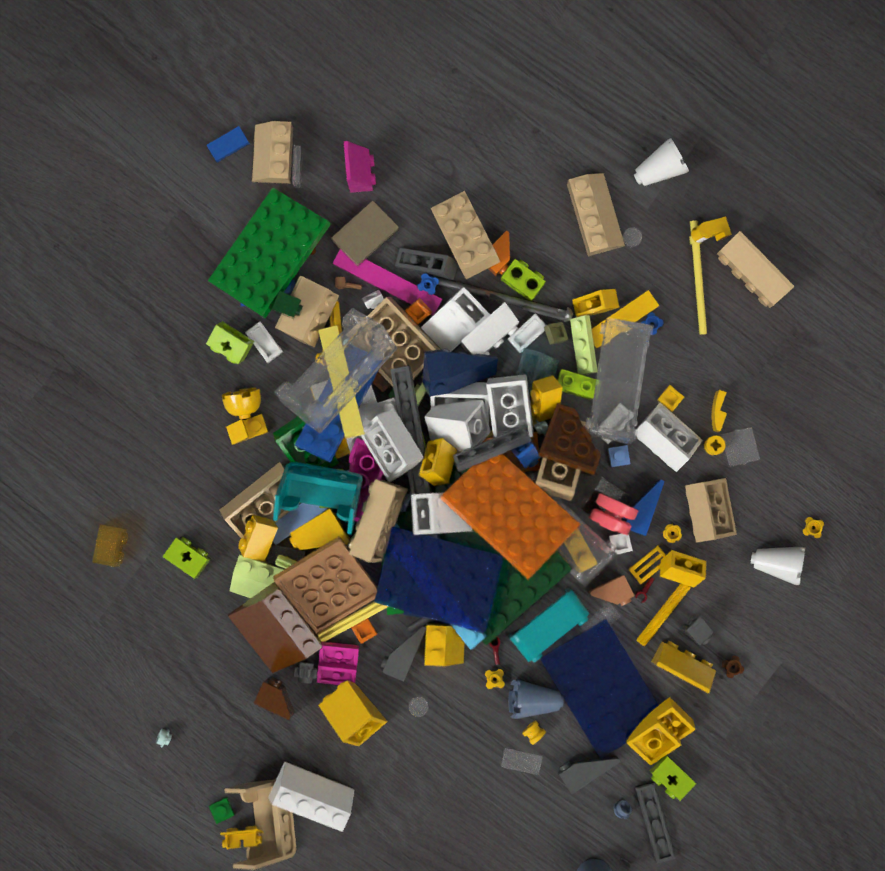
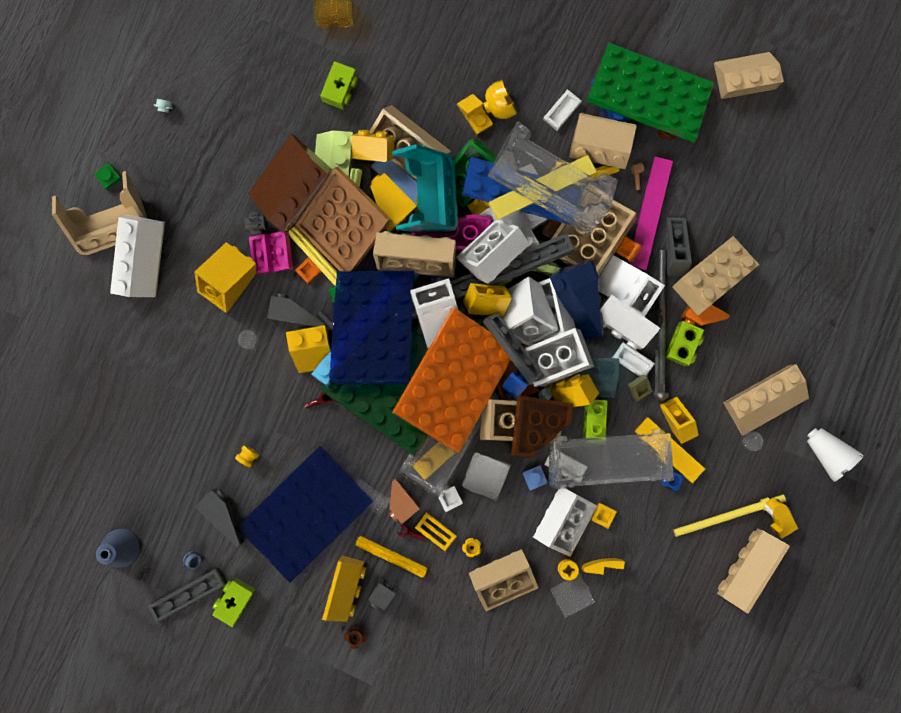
camera: 70 degrees right, 0 degrees up
(227, 144) = (744, 30): blue tile -> none
(239, 343) = (554, 76): lime brick -> none
(249, 836) = (87, 207): yellow hinge -> none
(275, 698) = (222, 199): reddish brown slope -> none
(287, 305) = (605, 117): dark green brick -> none
(297, 166) = (740, 100): clear tile -> none
(358, 168) = (755, 156): dark pink slope -> none
(365, 233) = (691, 180): dark tan tile -> none
(373, 299) = (629, 202): white plate -> none
(423, 285) = (658, 257): blue plate -> none
(491, 683) = (295, 406): yellow plate -> none
(521, 761) = (217, 451): clear tile -> none
(532, 700) = (278, 448): sand blue cone -> none
(550, 626) = (352, 446): teal windscreen -> none
(583, 345) = (635, 417): yellowish green plate -> none
(613, 514) = (476, 484): coral wheel -> none
(646, 507) = (483, 512): blue slope -> none
(661, 731) = (275, 580): yellow slope -> none
(683, 568) = (439, 566): yellow brick -> none
(780, 562) = (468, 662): white cone -> none
(818, 527) = (514, 691): yellow plate -> none

